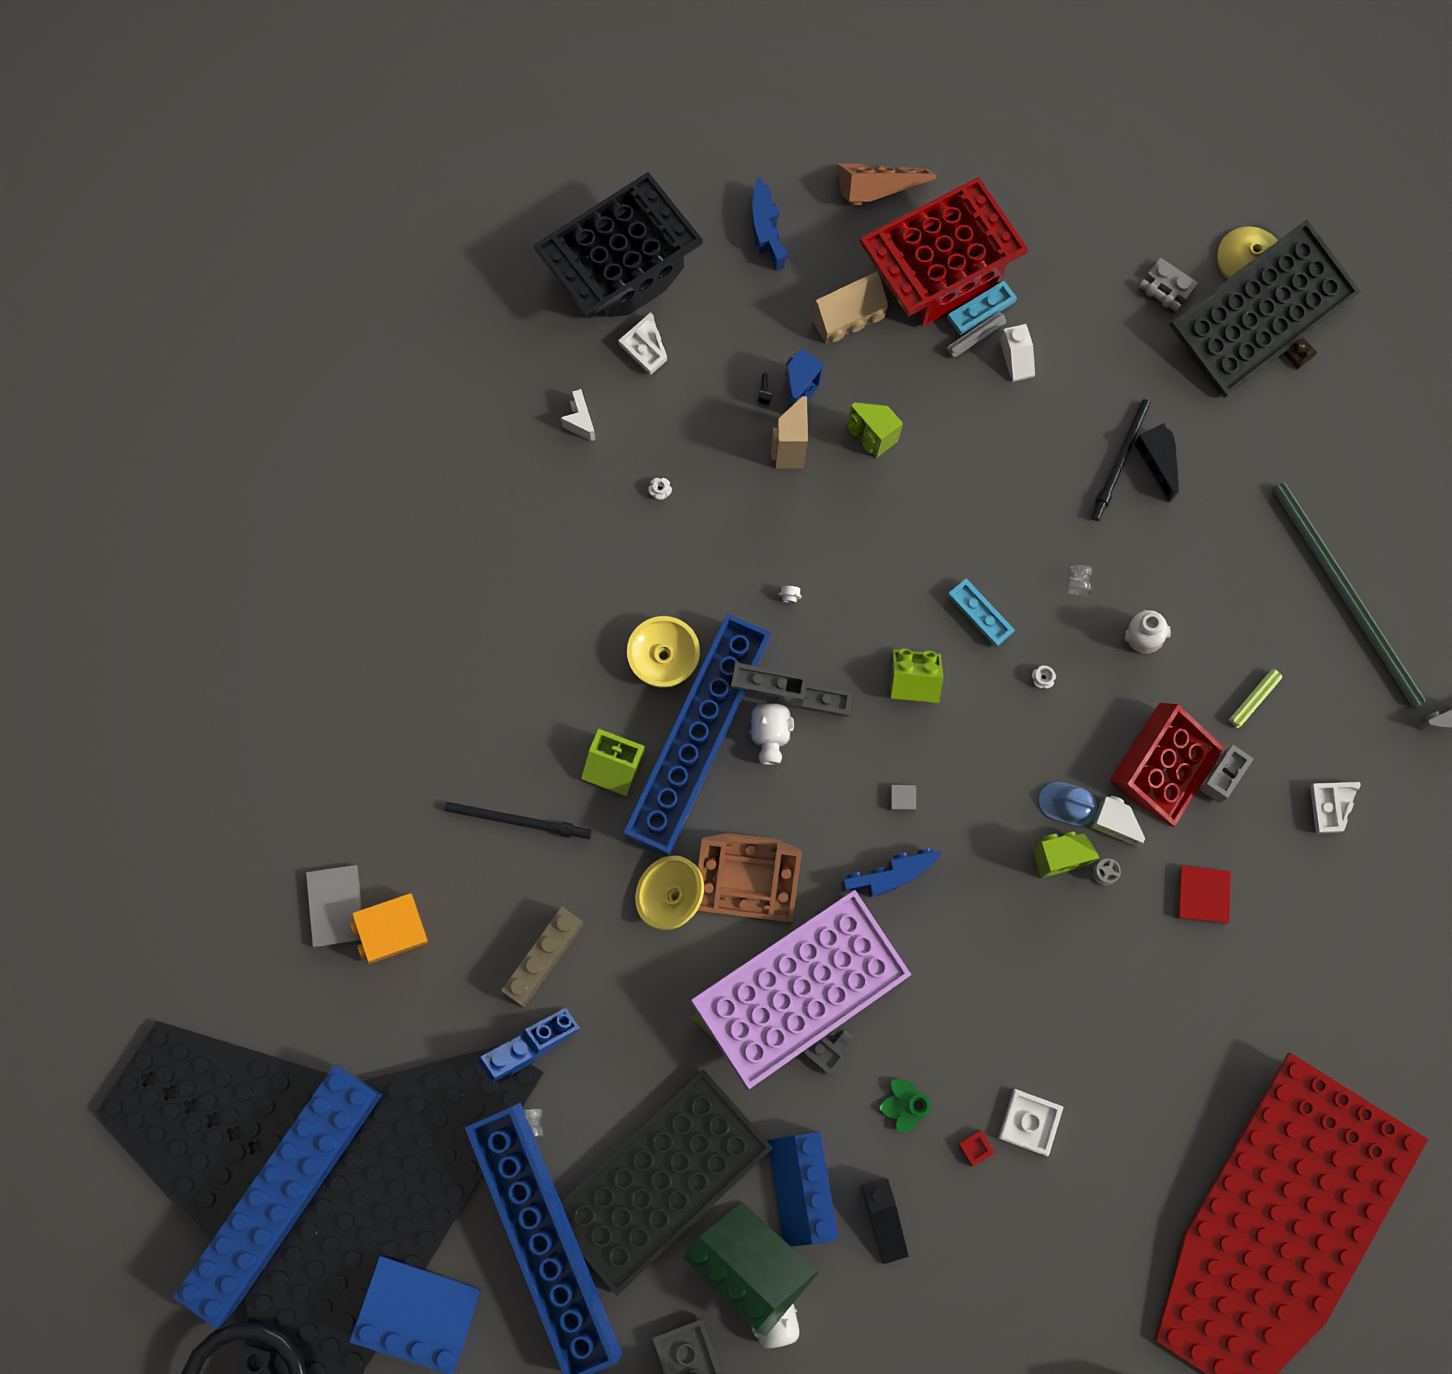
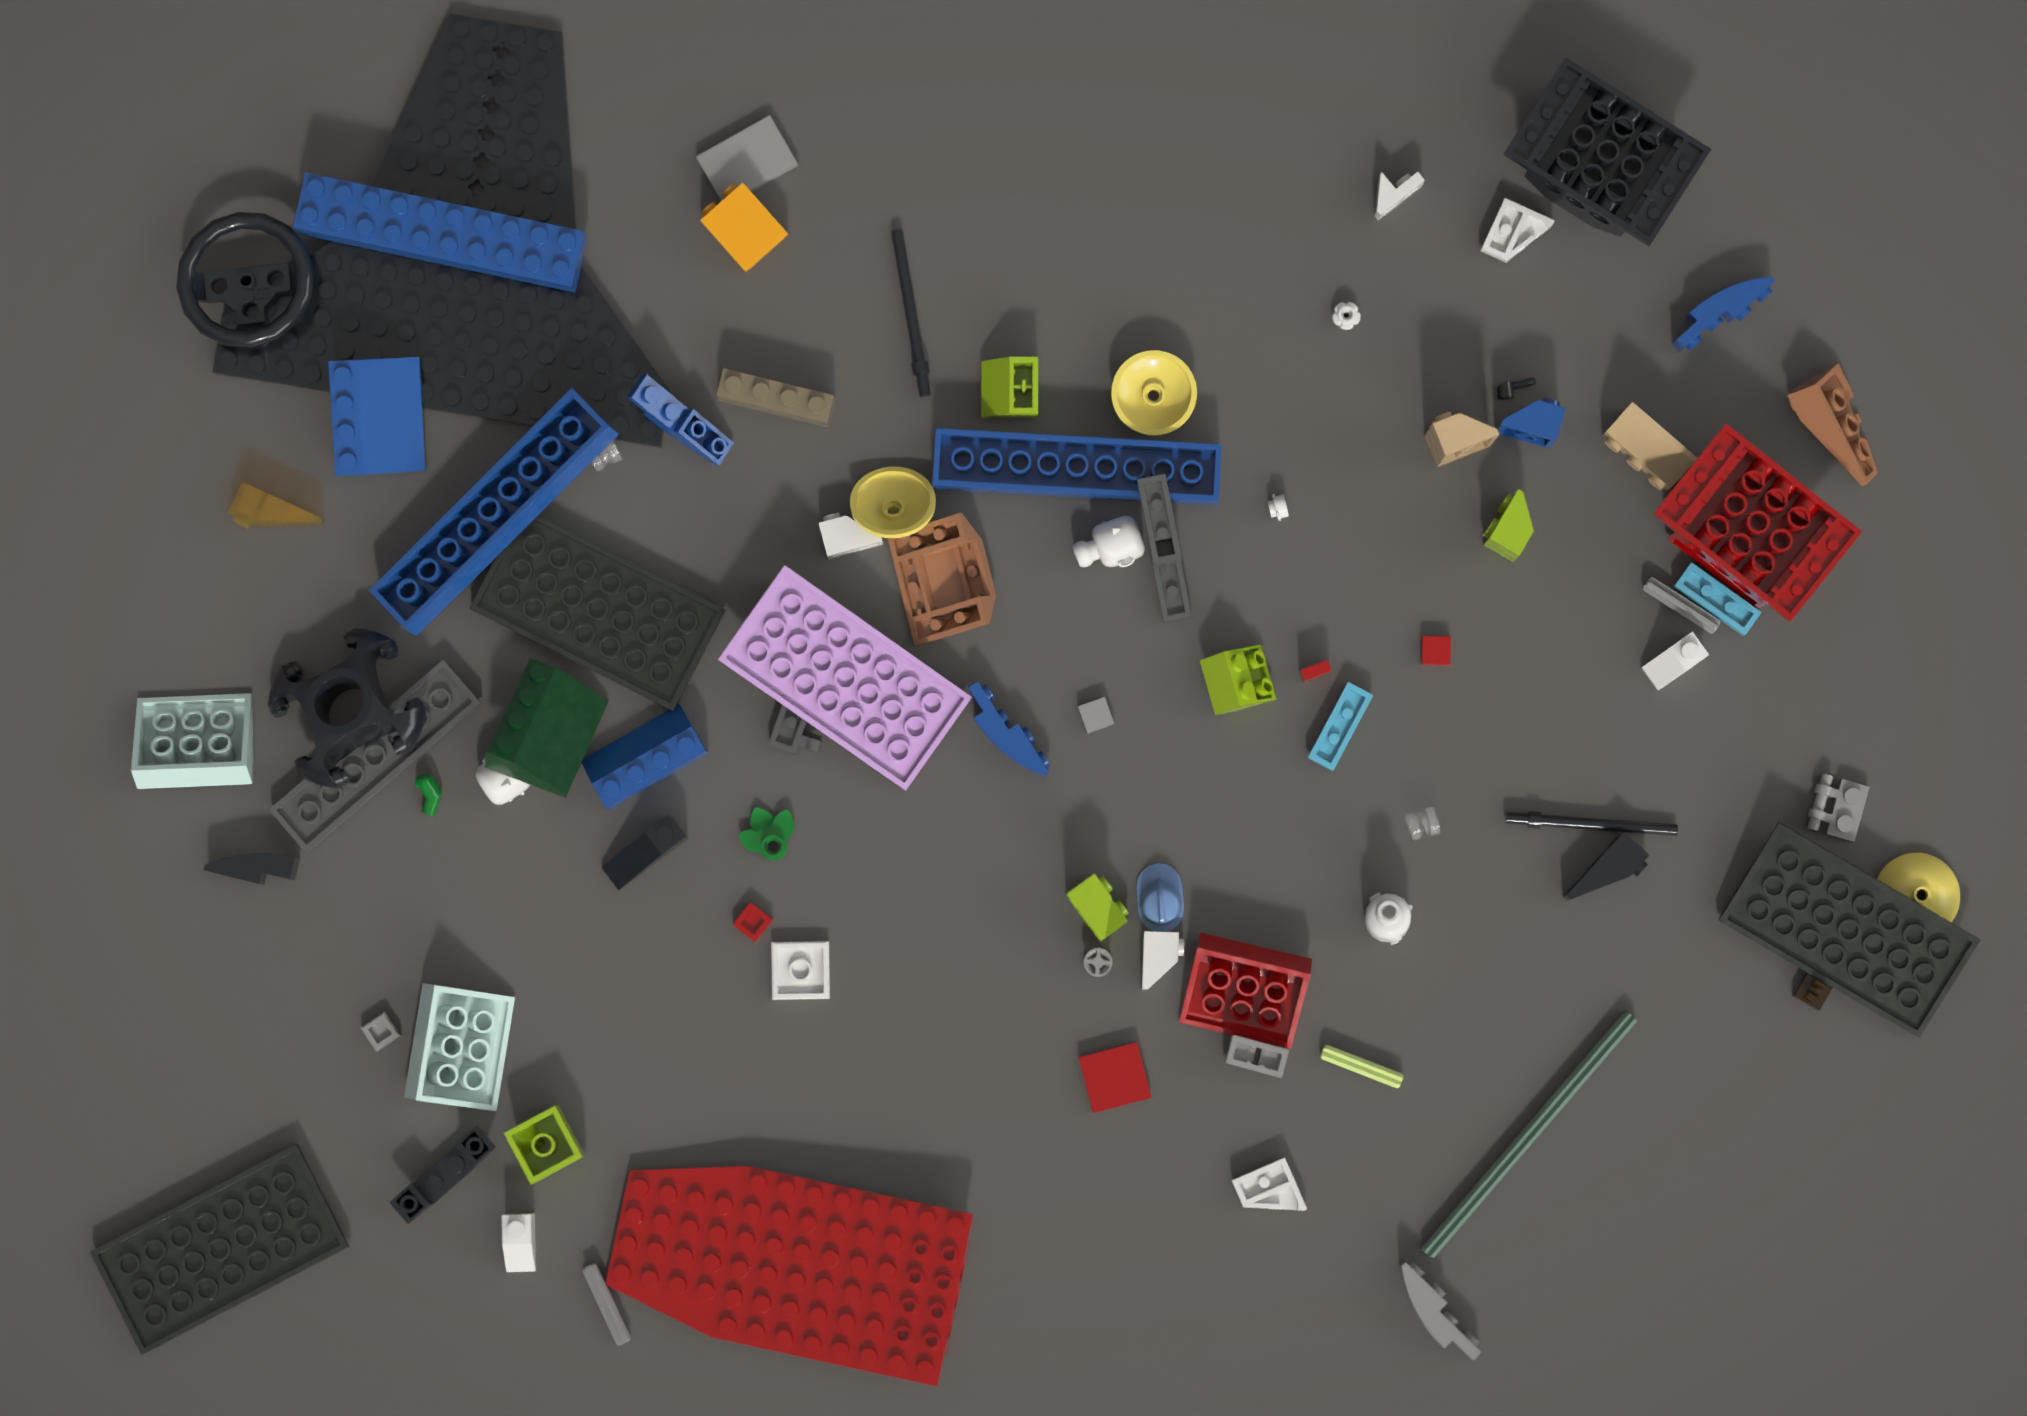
camera: 75 degrees right, 10 degrees up
(680, 944) = (845, 536): none -> white slope
(931, 617) = (1315, 671): none -> red tile
(946, 521) = (1436, 650): none -> red tile
(1048, 673) = (1301, 821): white plate -> none

